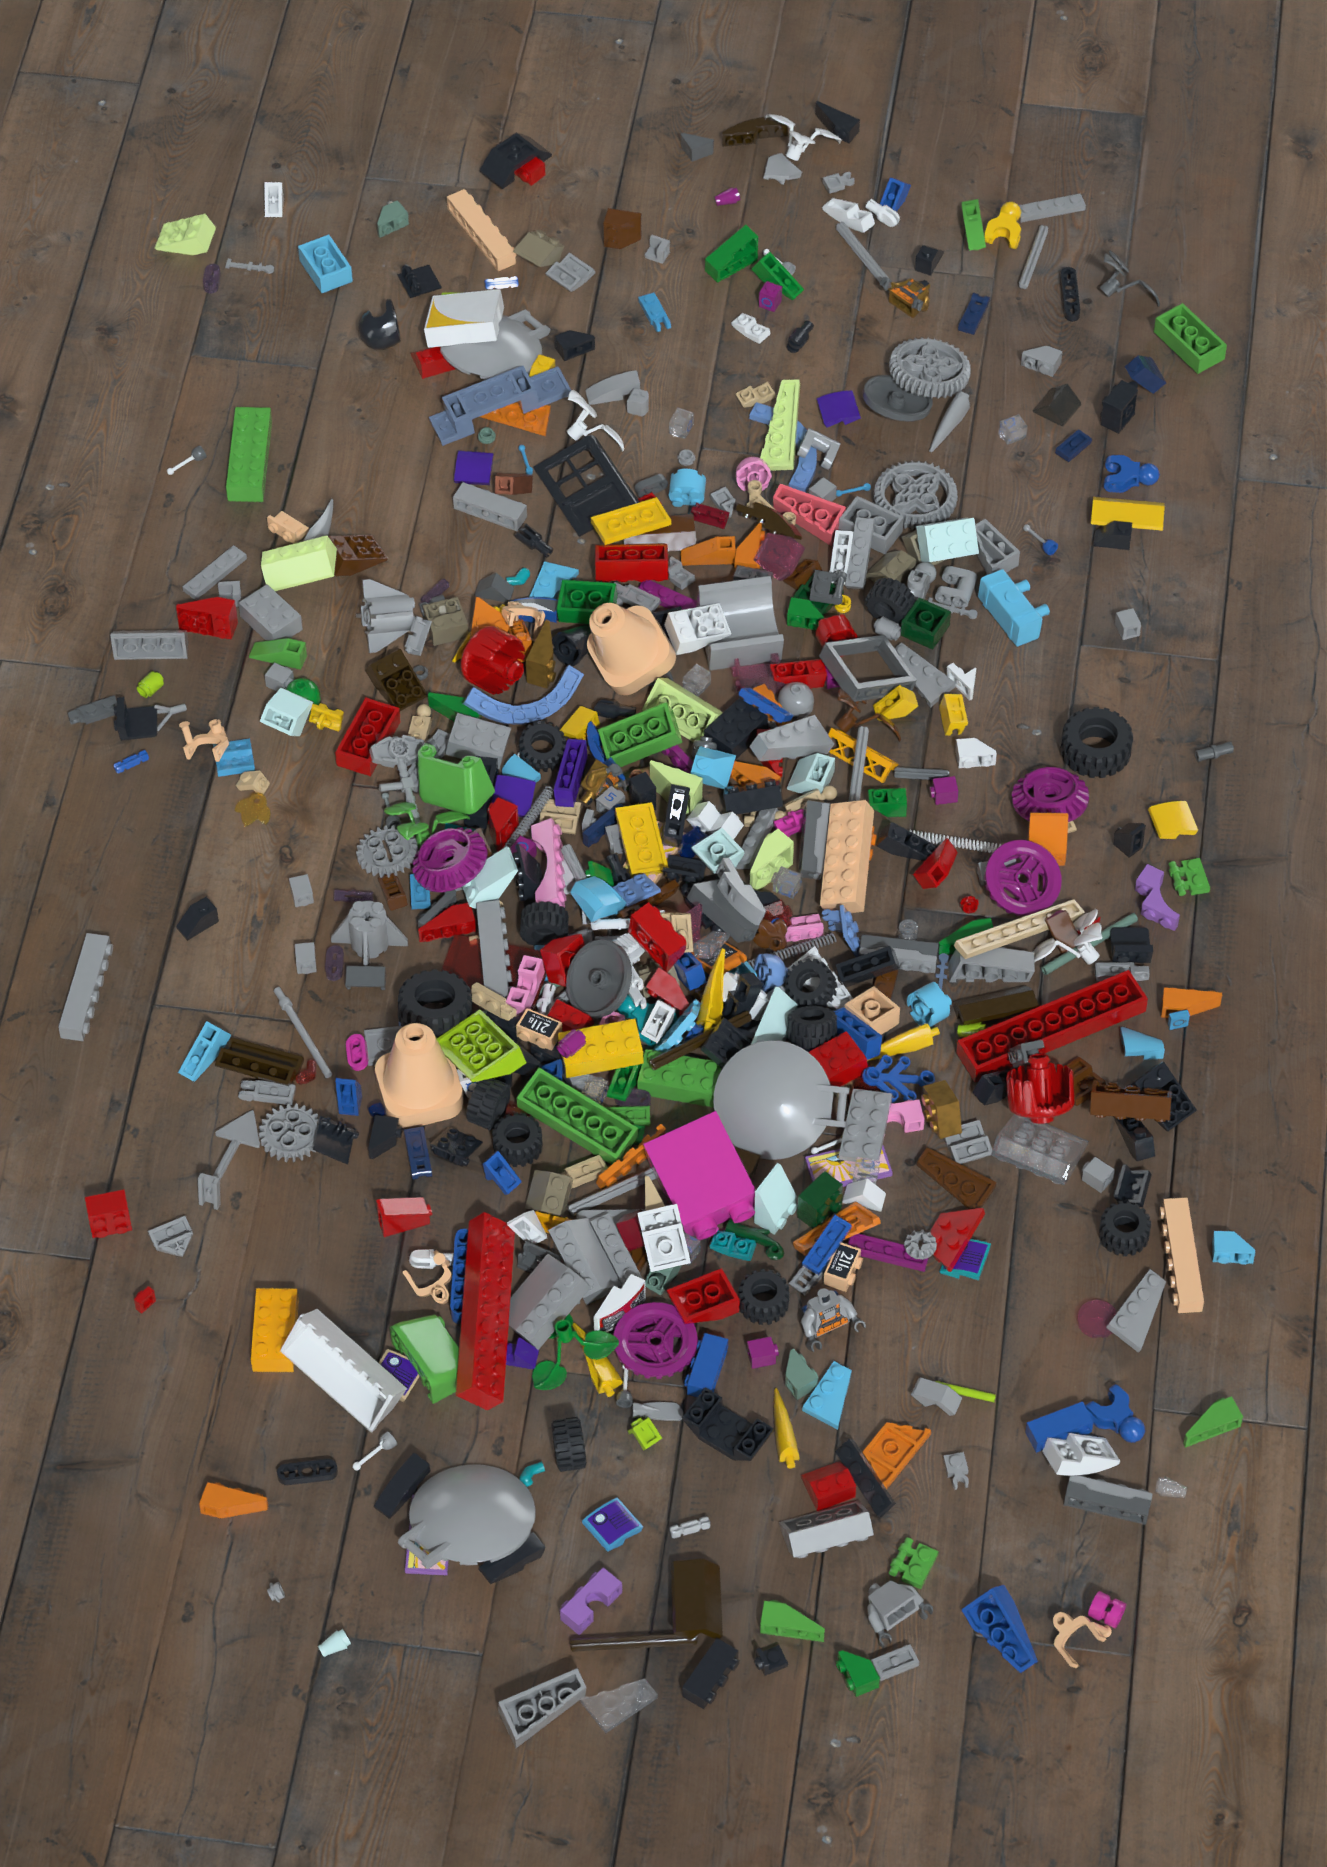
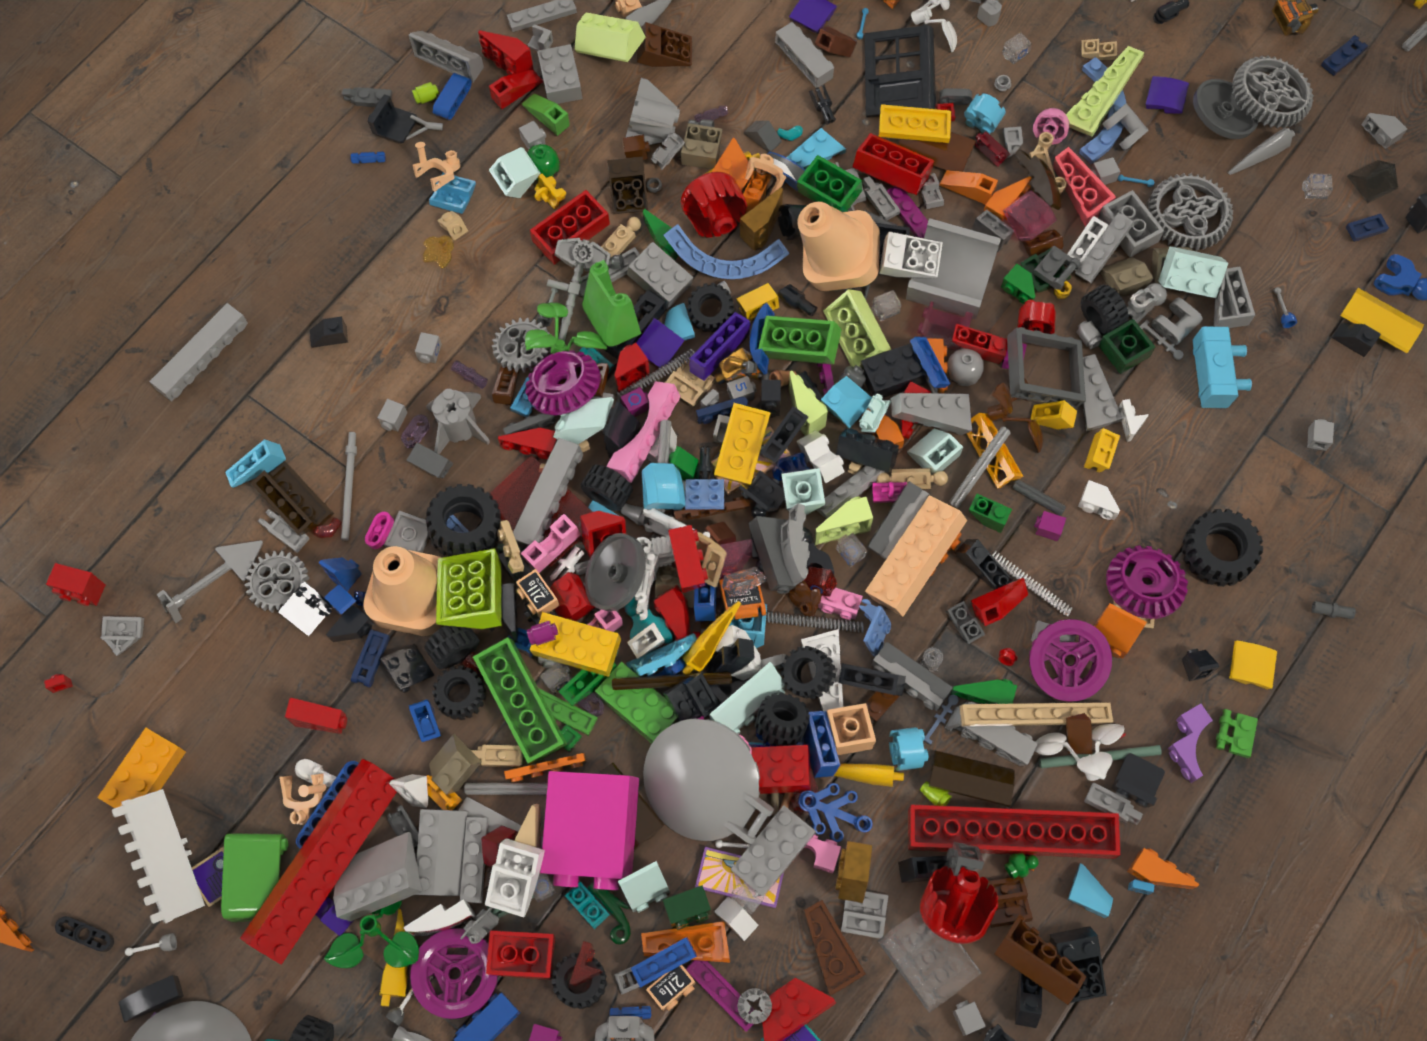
camera: 30 degrees right, 15 degrees up
(178, 676) = (452, 96): none -> blue beam
(232, 645) = (513, 86): none -> red slope
(365, 1115) = (340, 599): none -> blue slope
(384, 645) = (636, 147): none -> reddish brown brick
(655, 1293) = (481, 927): none -> light grey hinge
(743, 765) = (871, 420): none -> light aqua hinge
(765, 1275) = (582, 971): none -> clear red slope
(770, 971) = (781, 638): medium blue cylinder -> none
(919, 897) = (965, 623): none -> dark grey slope
(1072, 1049) = (1019, 865): none -> green animal

